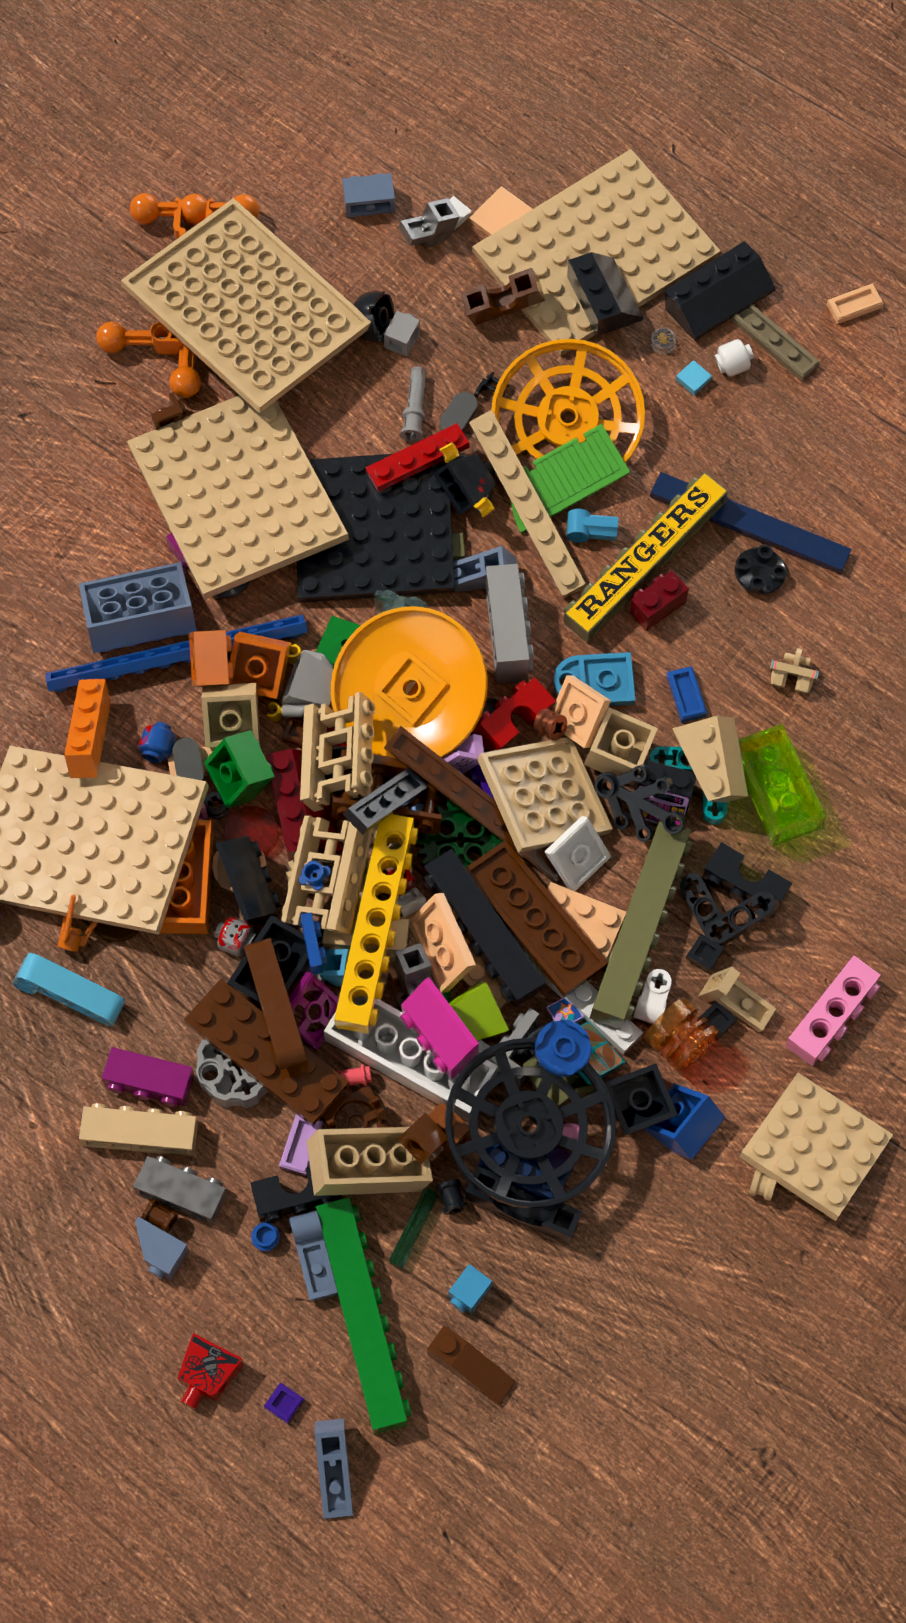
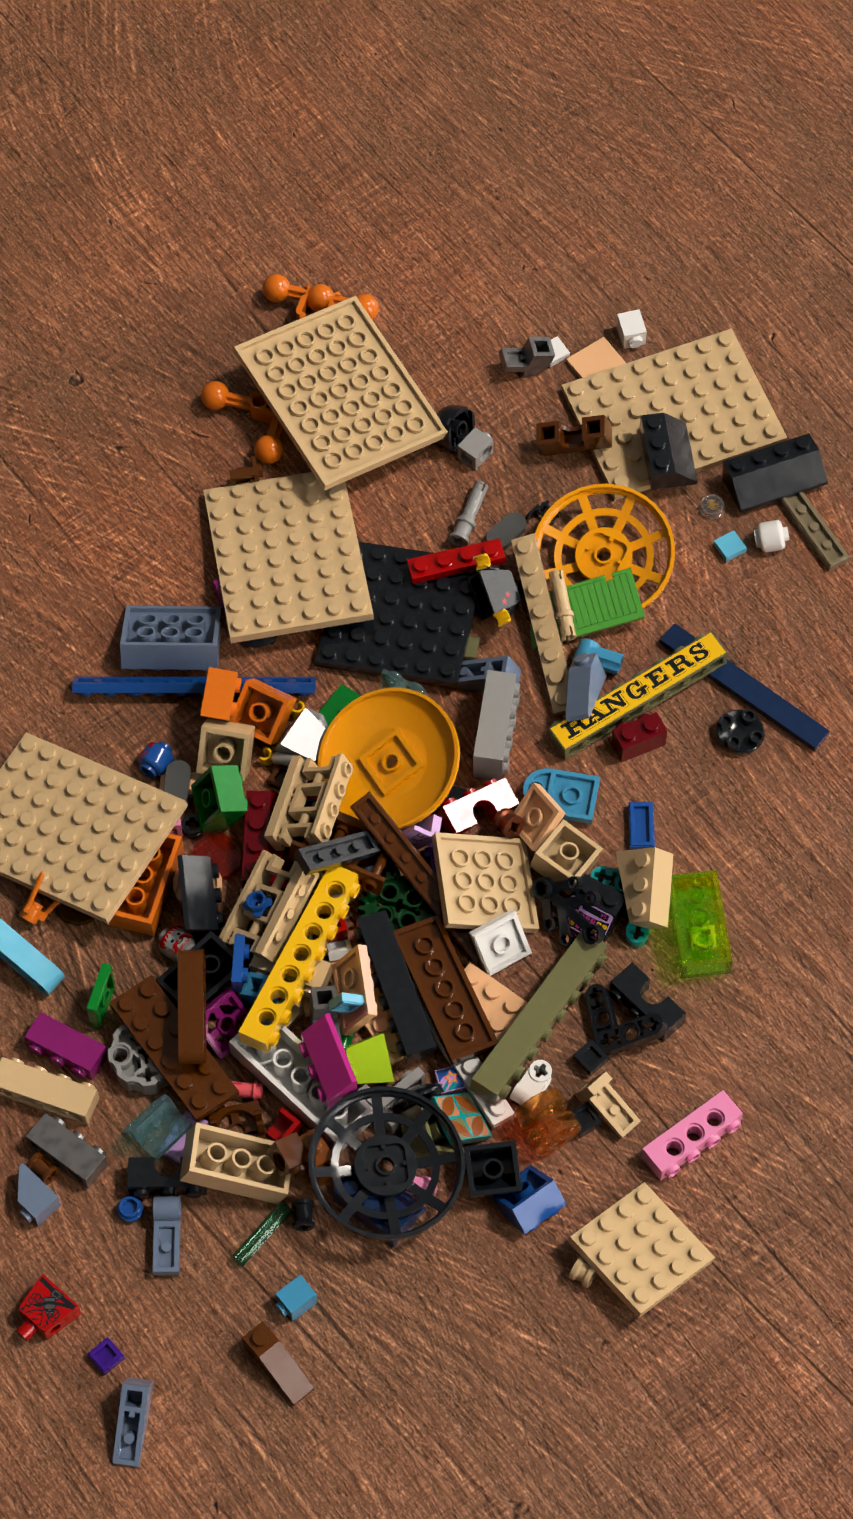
camera: 15 degrees right, 5 degrees down
(87, 728) = (96, 732): orange brick -> none
(171, 1014) = (101, 996): none -> green plate
(272, 1140) = (158, 1127): none -> clear light blue bracket
(362, 1316) = (194, 1297): green brick -> none
(368, 195) = (480, 319): sand blue brick -> none
(406, 1108) = (284, 1126): none -> red panel
(439, 959) = (346, 1002): none -> medium azure tile
(528, 172) = (631, 329): none -> white brick
(545, 487) = (564, 613): none -> tan pin
(554, 1221) = (386, 1256): black arch -> none
(563, 1048) = (433, 1104): blue tile -> none
(588, 560) = (584, 686): none -> sand blue slope
(782, 670) = (733, 824): tan hips -> none

